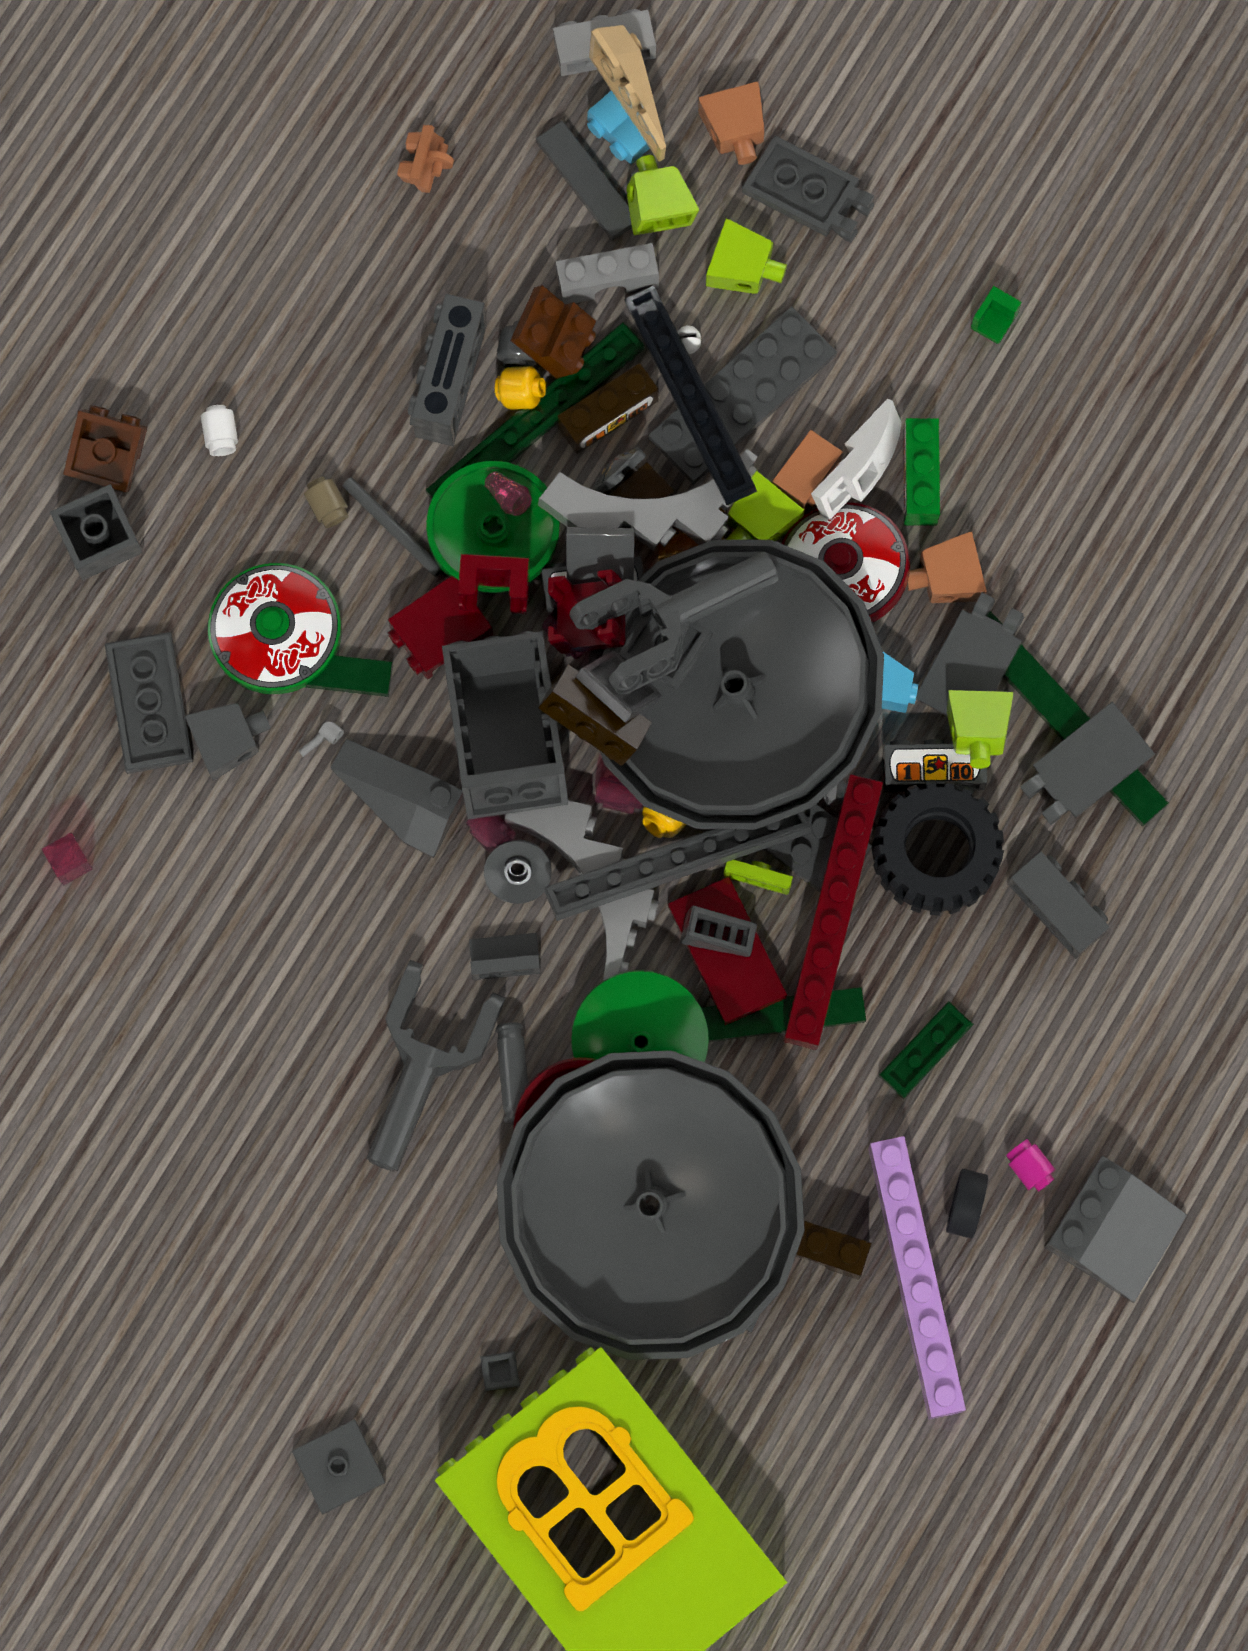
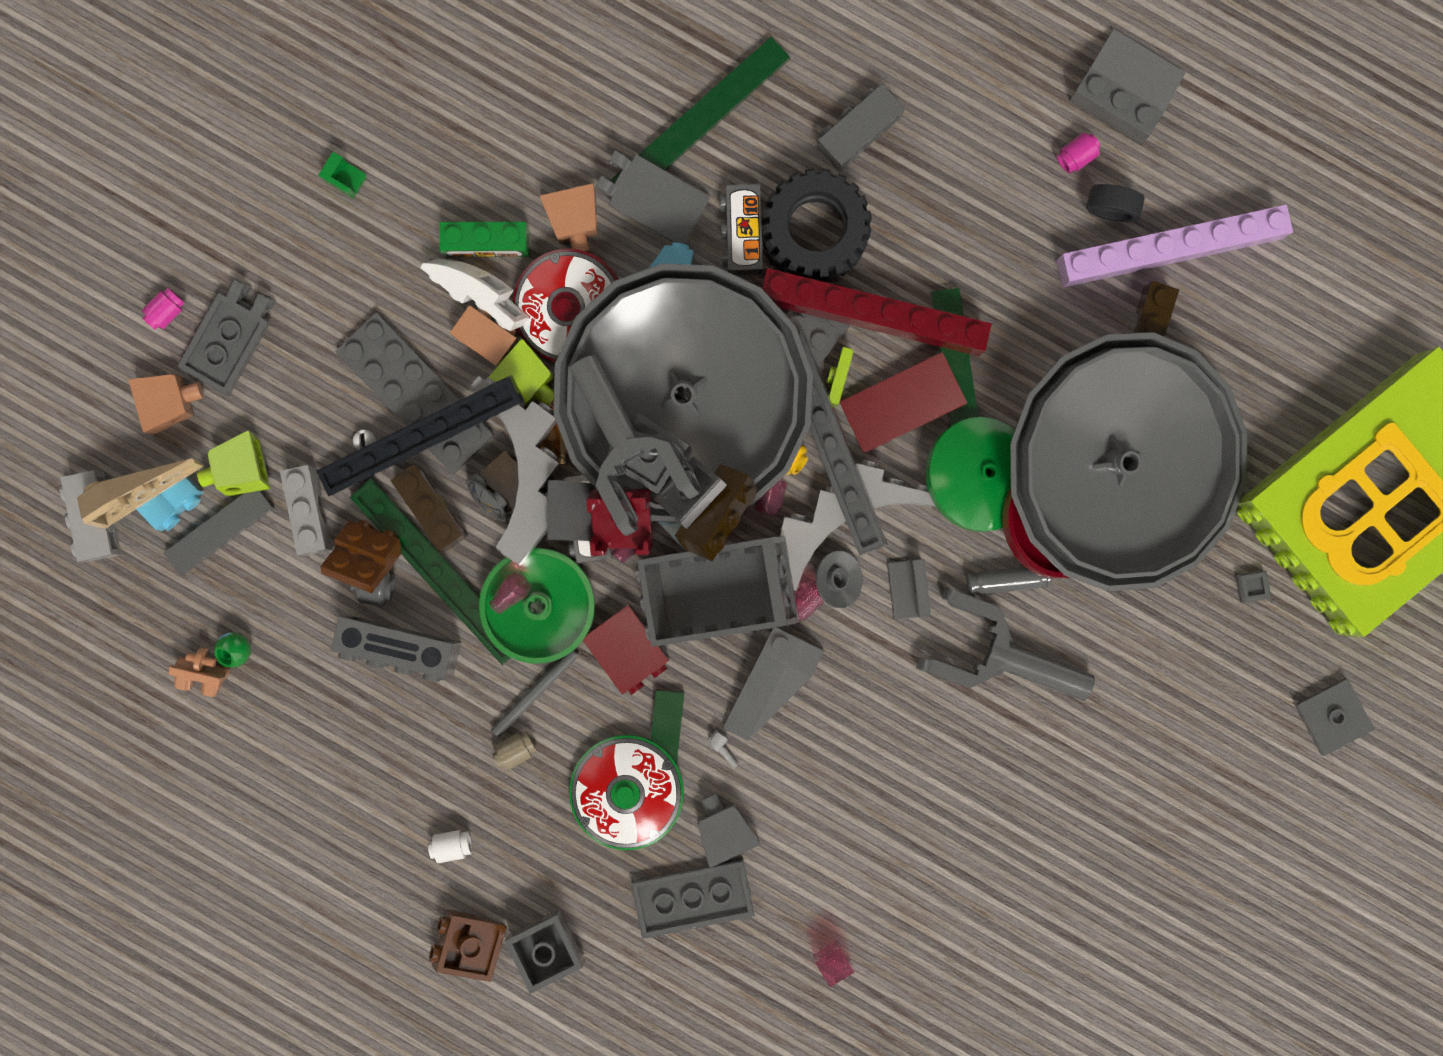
camera: 90 degrees left, 10 degrees up
(450, 194) = (232, 649): none -> green piece
(493, 572) = (588, 602): dark red panel -> none
(520, 387) = (411, 585): yellow head -> none
(716, 943) = (887, 433): dark grey slope -> none
(742, 261) = (293, 393): lime torso -> none
(840, 119) = (162, 309): none -> dark pink brick
(926, 1050) = (981, 239): dark green tile -> none
(979, 723) = (712, 188): lime torso -> none
(1088, 764) = (740, 100): dark grey tile -> none

